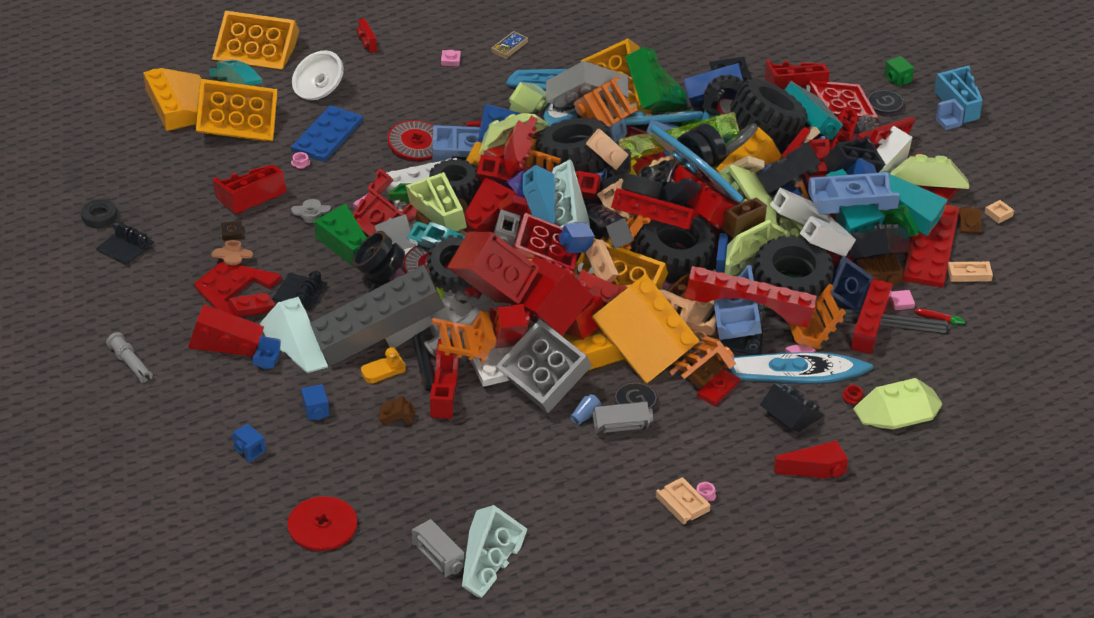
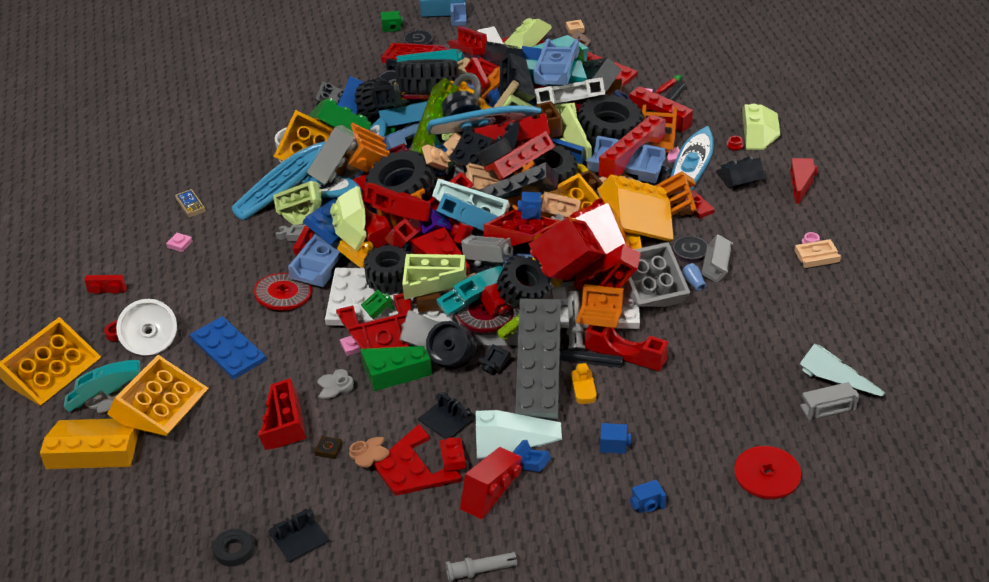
camera: 65 degrees left, 0 degrees up
(300, 160) = (257, 373): bright pink plate -> none
(396, 410) = (647, 388): reddish brown bracket -> none
(784, 73) = (366, 65): red wedge -> none
(969, 271) = (631, 56): light nougat plate -> none

